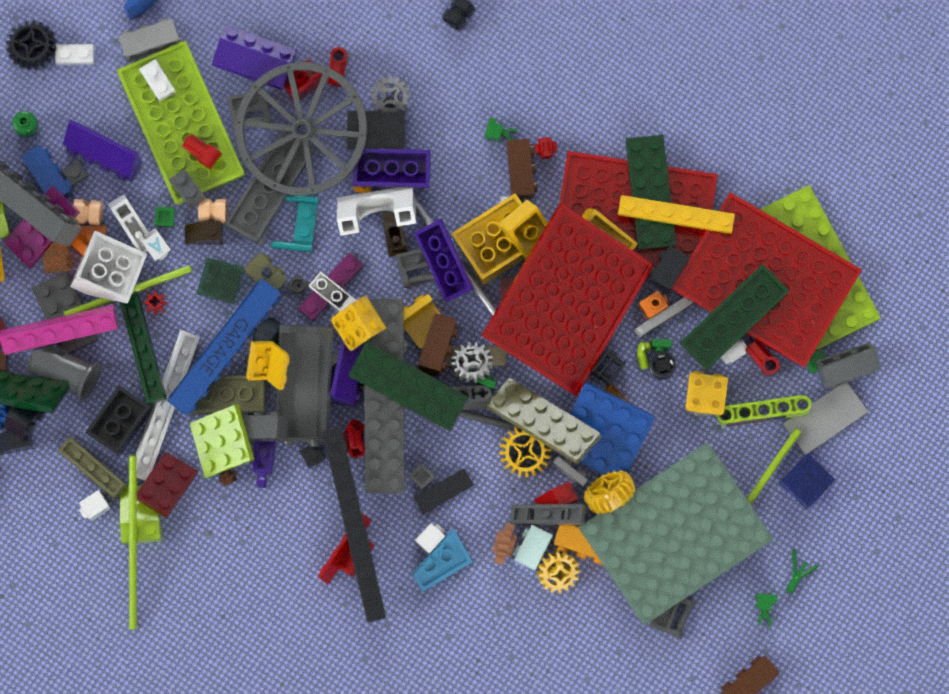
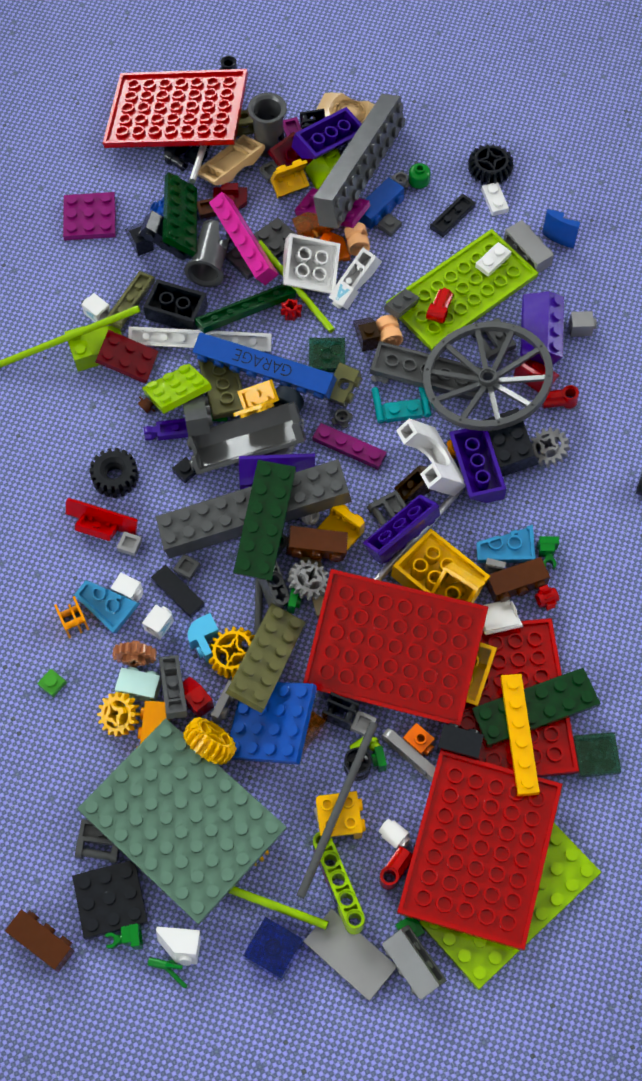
camera: 75 degrees right, 15 degrees down
(17, 141) = (401, 178): none -> light grey plate
(82, 104) = (452, 215): none -> black tile
(102, 151) = (413, 235): dark purple slope -> none
(164, 217) = (372, 298): green plate -> none
(258, 17) = (582, 323): none -> light grey brick
(302, 511) = (108, 462): none -> black tyre
(331, 292) = (340, 443): white slope -> none
(354, 438) = (198, 495): red piece -> none
(354, 525) = (119, 512): black brick -> none
(357, 323) = (314, 458): yellow bracket -> none
(381, 527) = (129, 543): none -> light grey plate
(455, 593) = (76, 621): none -> light orange piece
(472, 515) = (158, 621): none -> white brick
(484, 167) = (509, 548): none -> dark azure wing
(496, 480) = (200, 633): none -> medium azure brick
(501, 186) = (494, 565): none -> light grey tile
(506, 630) = (52, 683): none -> bright green plate
(551, 194) = (501, 617): none -> white piece
(624, 350) = (362, 722): none -> light grey plate
(703, 392) = (336, 810): none -> dark grey piece
(705, 153) = (597, 754): none -> clear green plate
(726, 615) = (109, 899): none -> black plate
(734, 317) = (428, 820): dark green plate -> none
(784, 560) = (180, 944): none -> white slope

